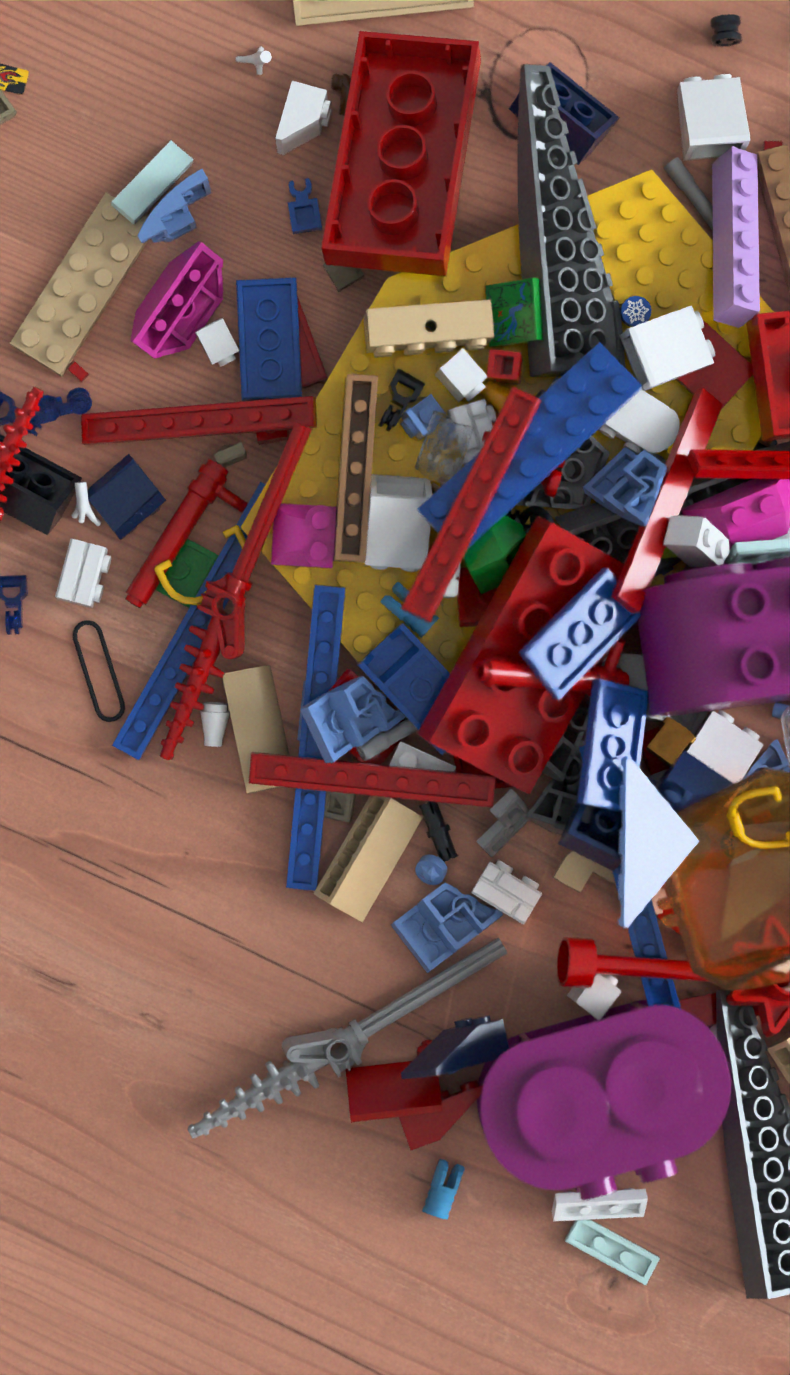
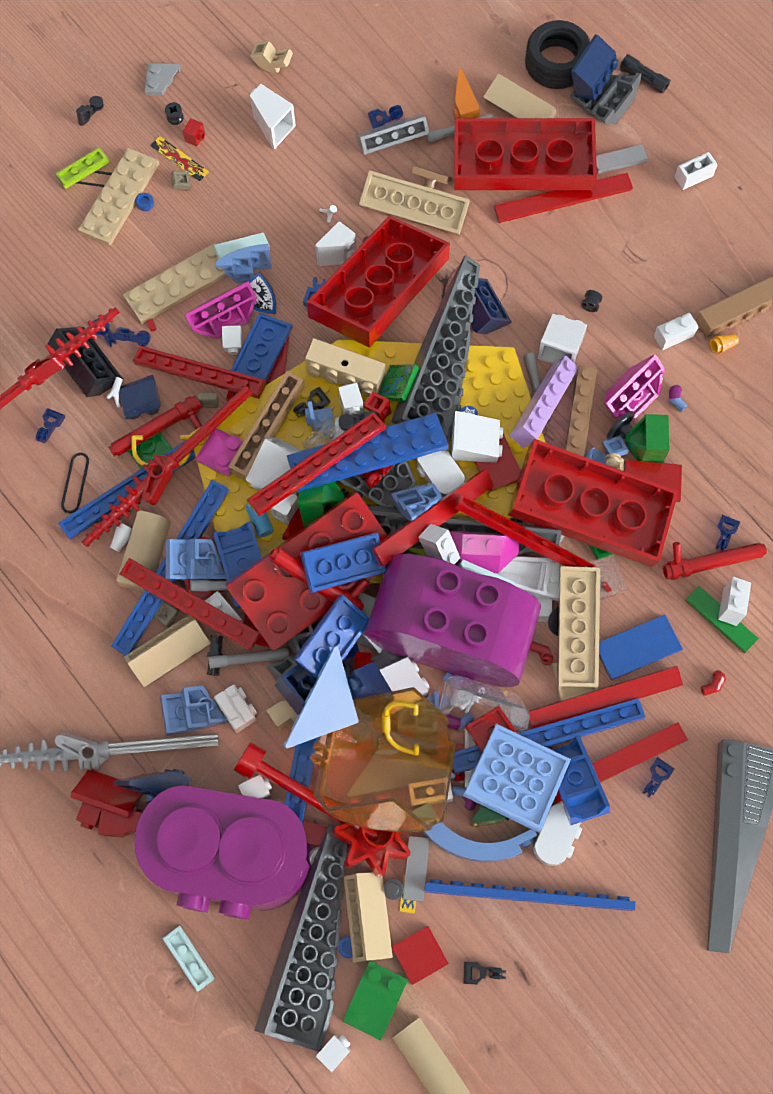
camera: 30 degrees right, 15 degrees down
(83, 573) = (94, 426): white brick -> none
(229, 246) = (265, 296): none -> shield
(343, 276) = (321, 333): dark tan tile -> none
(384, 1133) = (89, 816): none -> red brick
(431, 869) = (199, 675): medium blue tile -> none
(442, 1196) = (103, 872): dark azure hinge -> none
(462, 832) = (226, 660): none -> light grey piece
(472, 411) = (346, 421): none -> black piece
(510, 819) = (257, 667): light grey tile -> none
(618, 1204) = (193, 924): white plate -> none
(670, 741) = (374, 655): pearl gold tile -> none

